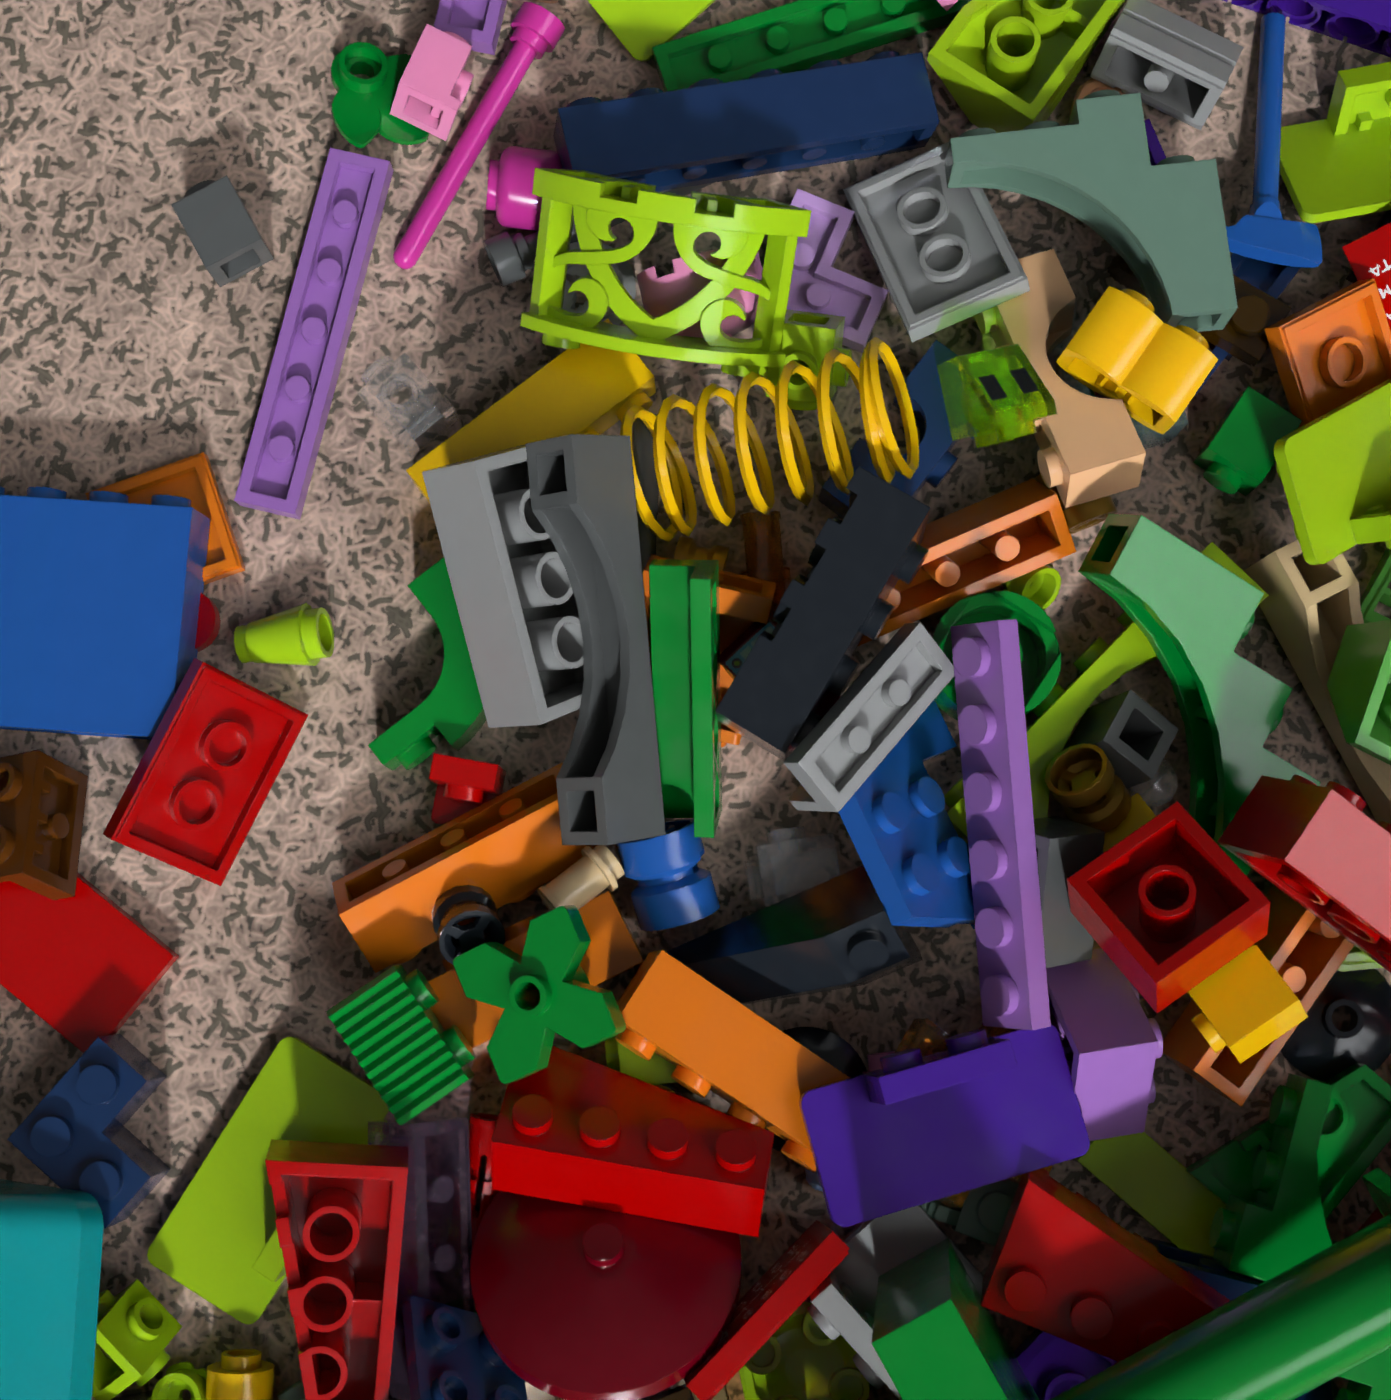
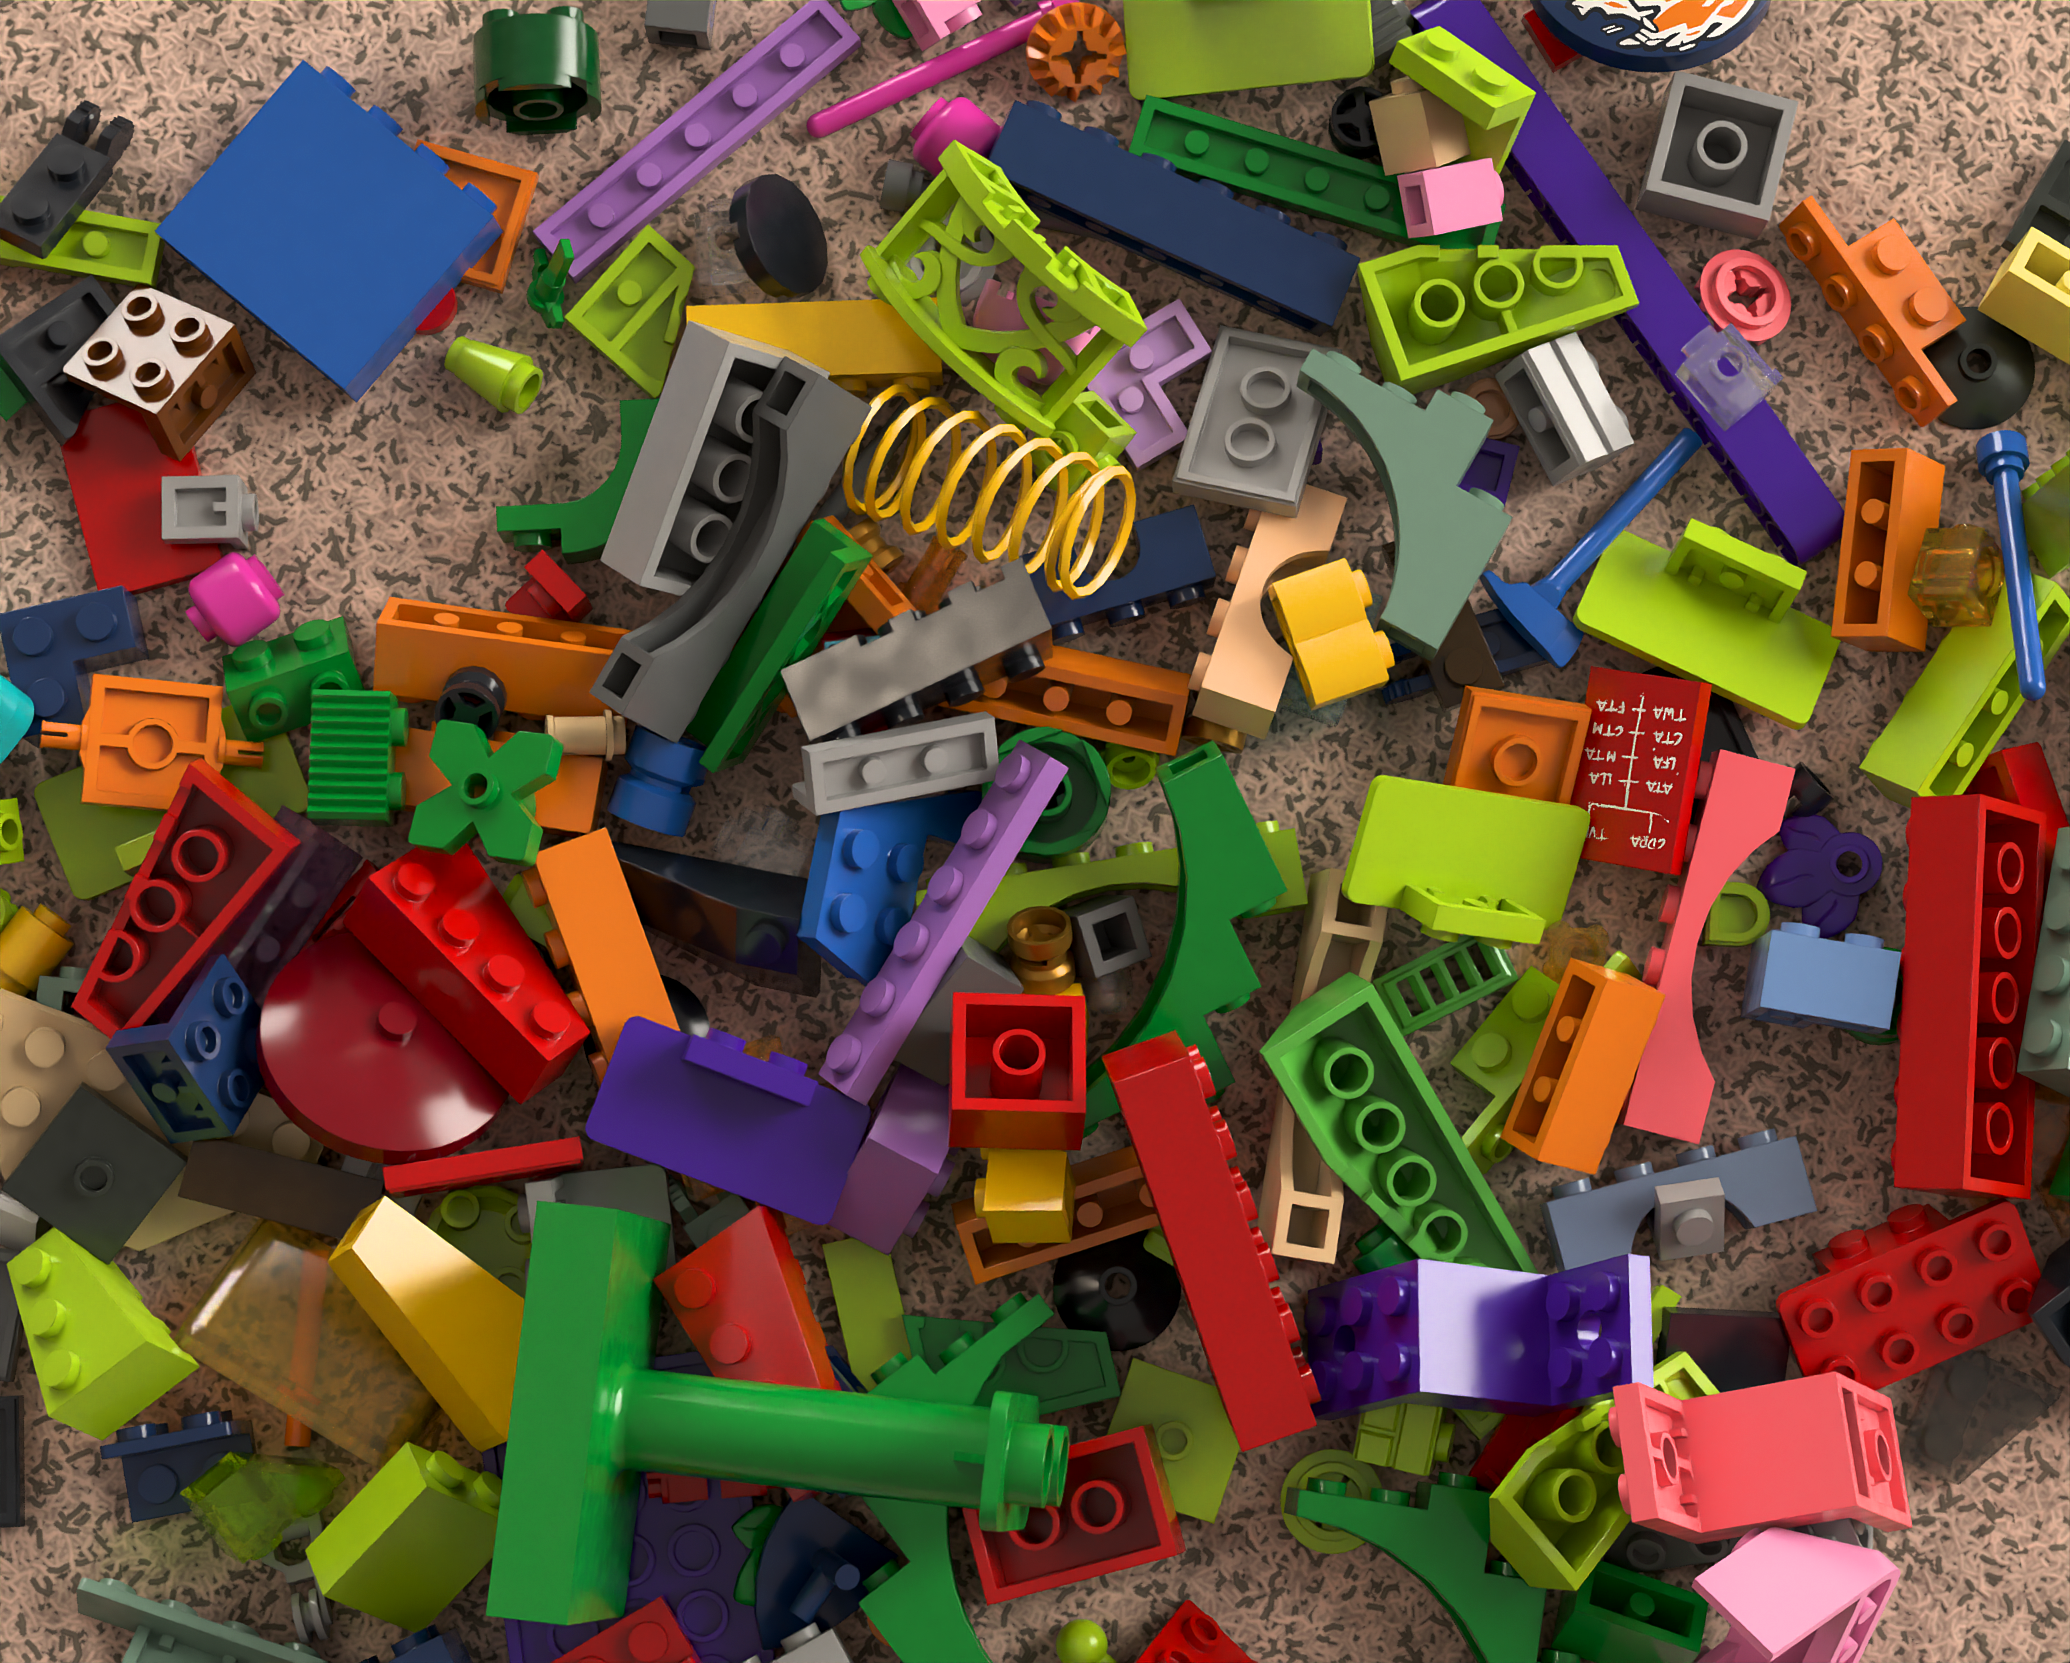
camera: 30 degrees right, 0 degrees up
(127, 920) = (208, 510): none -> light grey bracket
(142, 365) = (536, 70): none -> dark green brick
(203, 978) = (234, 599): none -> dark pink head
(205, 773) = (353, 438): red tile -> none
(211, 1152) = (144, 737): none -> orange plate
(277, 534) = (549, 278): none -> green piece
(286, 1019) = (275, 679): none -> green bracket
(365, 505) = (637, 309): none -> lime wing
(441, 361) = (779, 237): none -> black tile
(547, 45) = (1056, 34): none -> orange gear
(993, 396) = (1193, 580): clear neon green slope -> none
(1243, 443) = (1396, 755): green brick -> none

